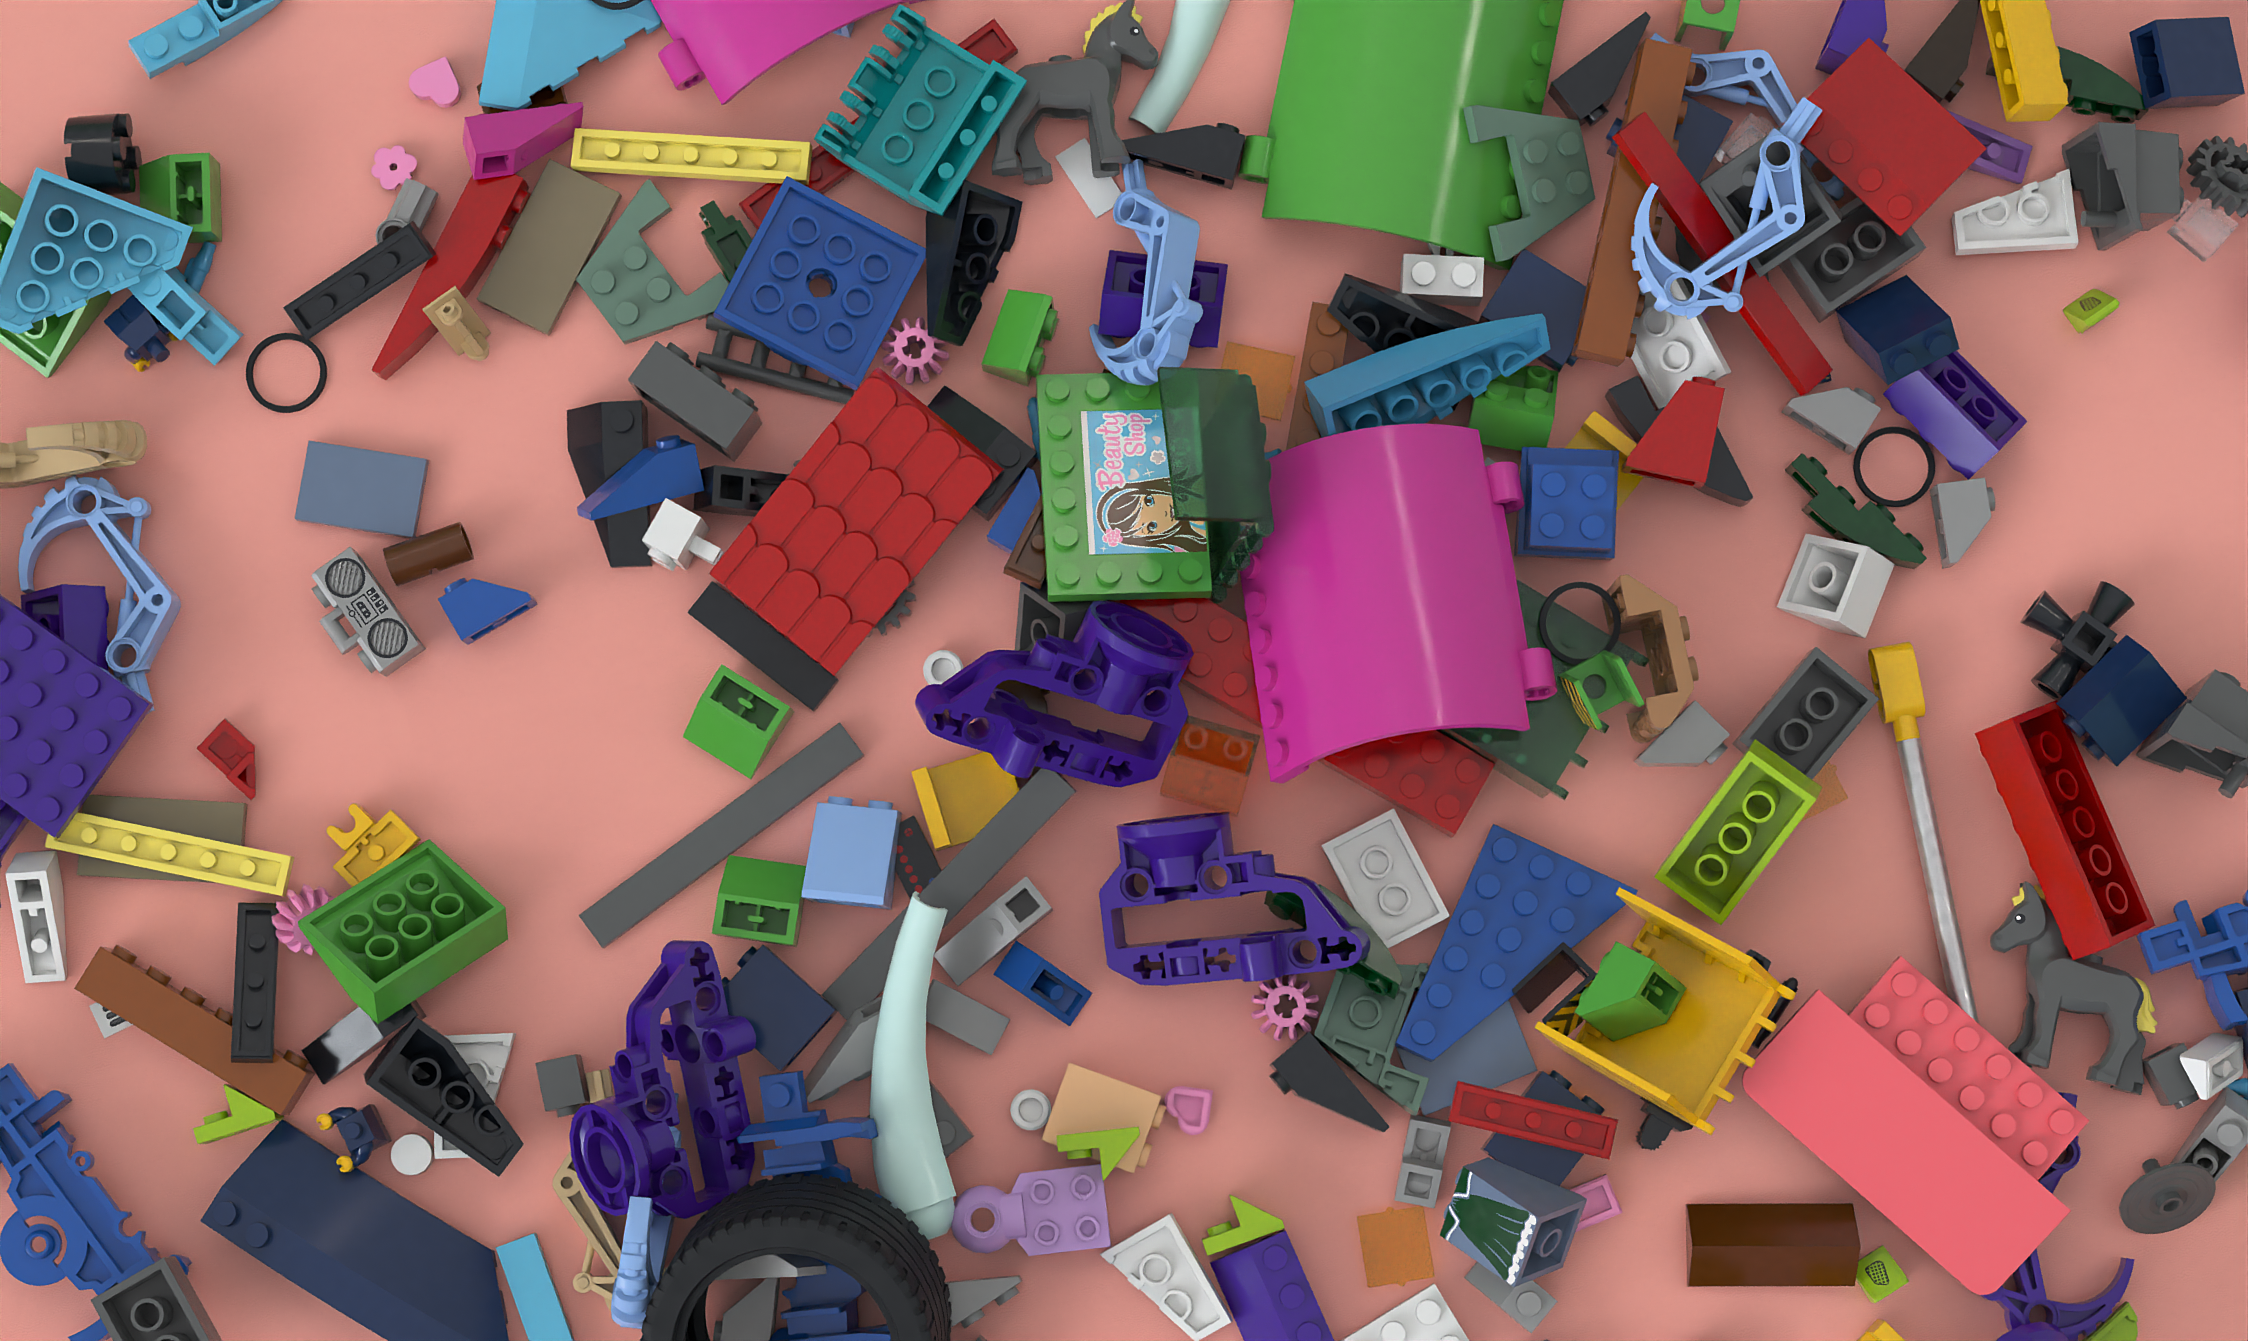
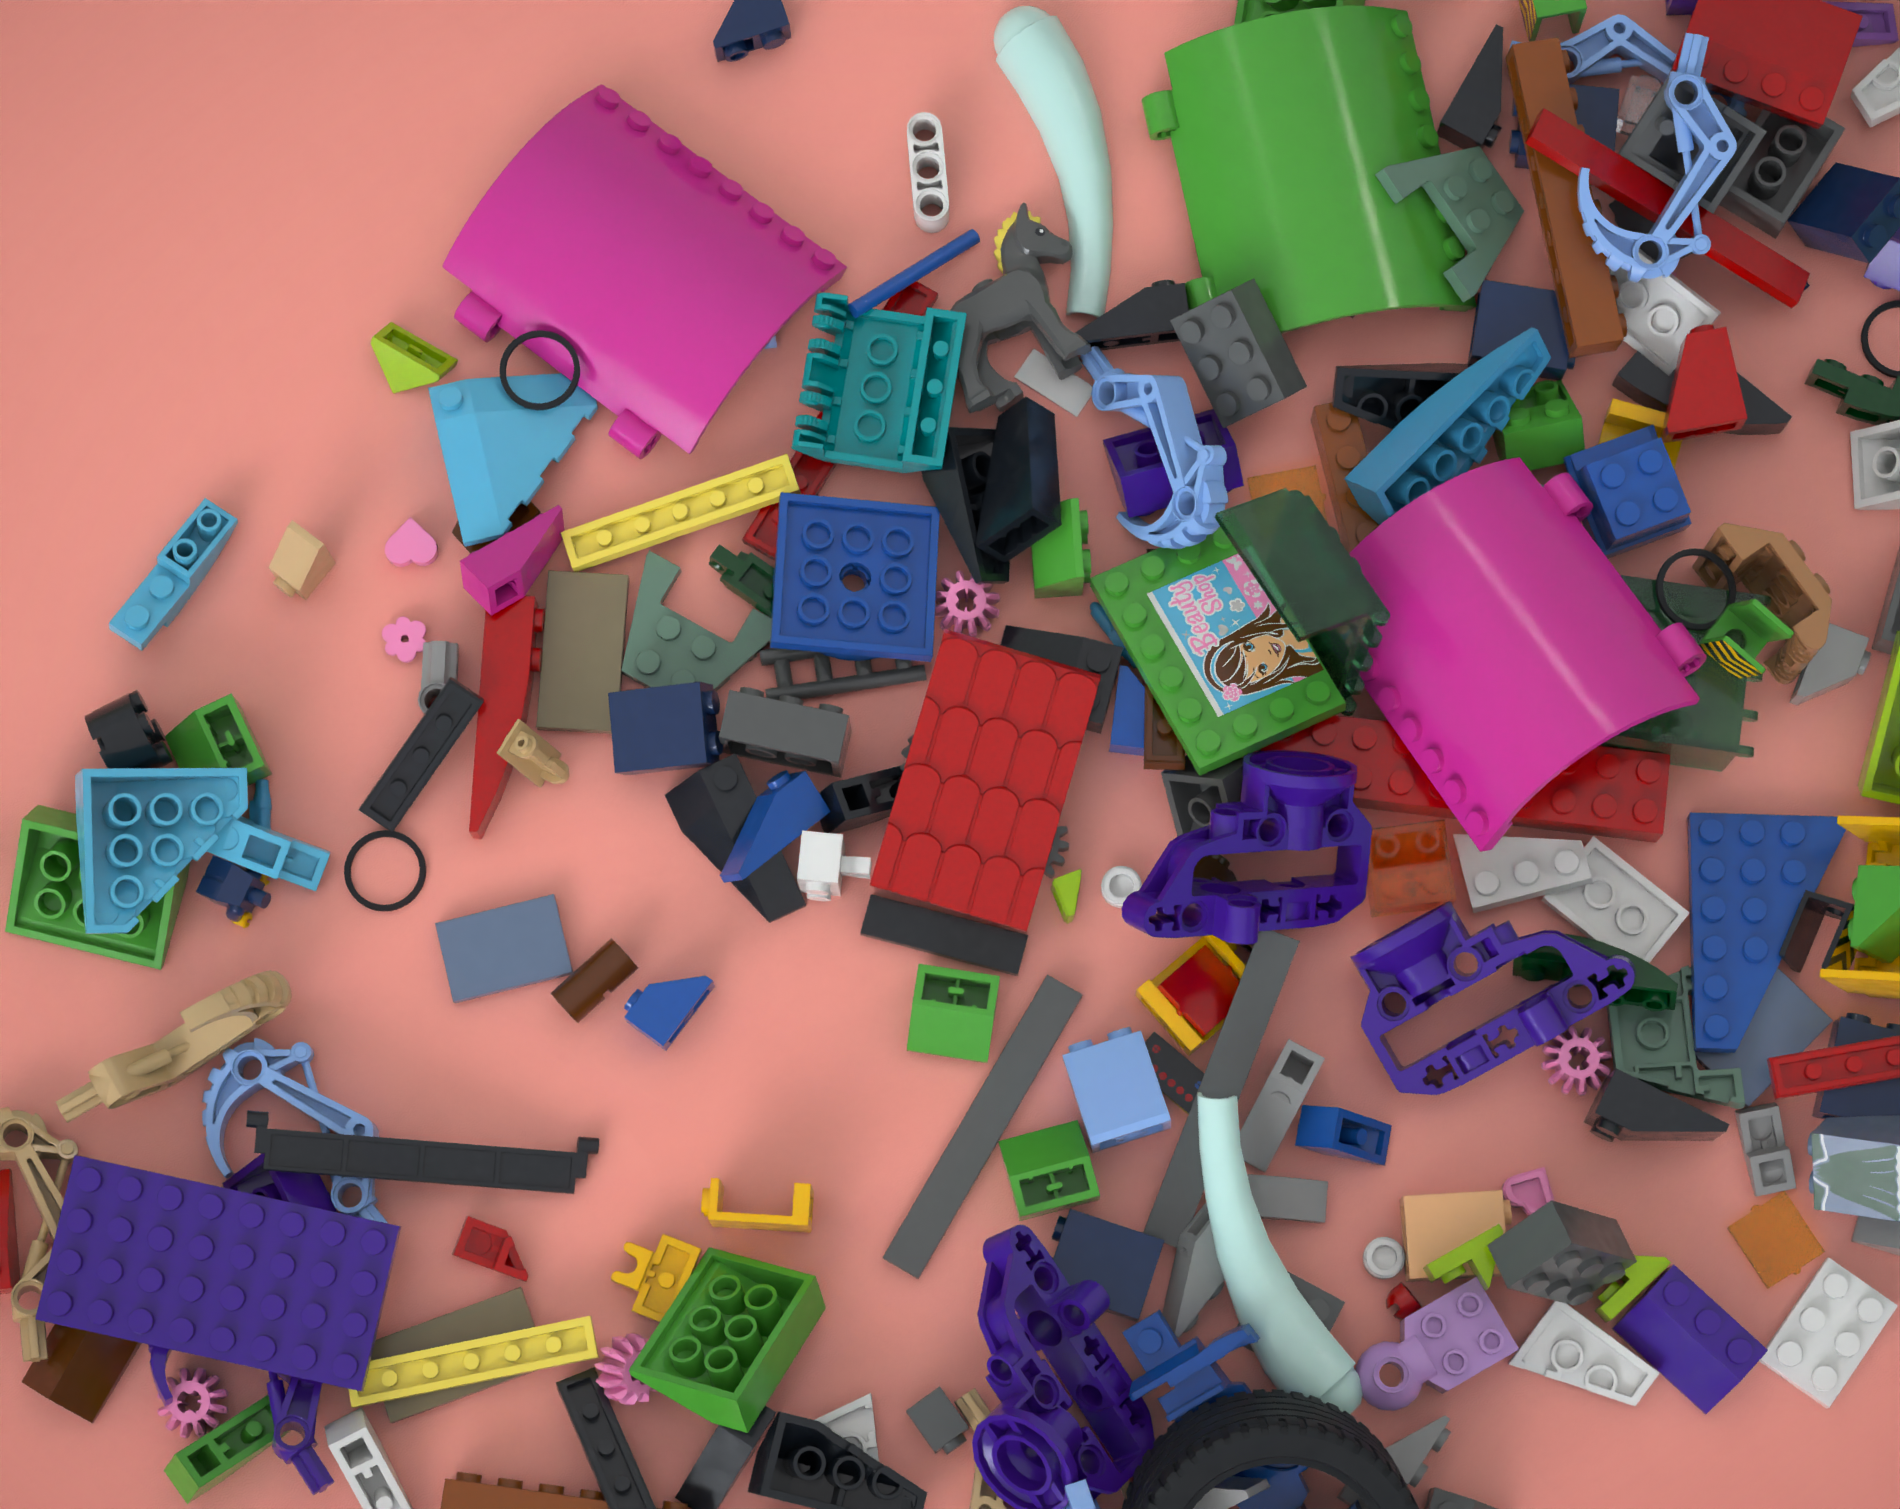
camera: 25 degrees left, 5 degrees down
(199, 650) = (420, 1159): none -> black piece
(325, 57) = (300, 562): none -> tan slope
(379, 625) = (577, 1066): light grey piece -> none
(520, 842) = (799, 1221): none -> yellow panel
(588, 349) = (664, 728): none -> dark blue brick
(889, 656) = (1065, 891): none -> lime slope
(970, 796) = (1201, 990): none -> red piece
(1001, 21) = (913, 273): none -> blue bar
(1011, 259) = (1021, 482): none -> black slope
(1031, 1156) = (1404, 1299): none -> red hinge
(1184, 1178) = (1562, 1253): none -> dark grey brick
(1262, 223) = (1238, 353): none -> dark grey brick
(1314, 812) = (1520, 869): none -> white wing
(1443, 278) = (1421, 337): white brick -> none
(1835, 415) = (1830, 315): light grey slope -> none

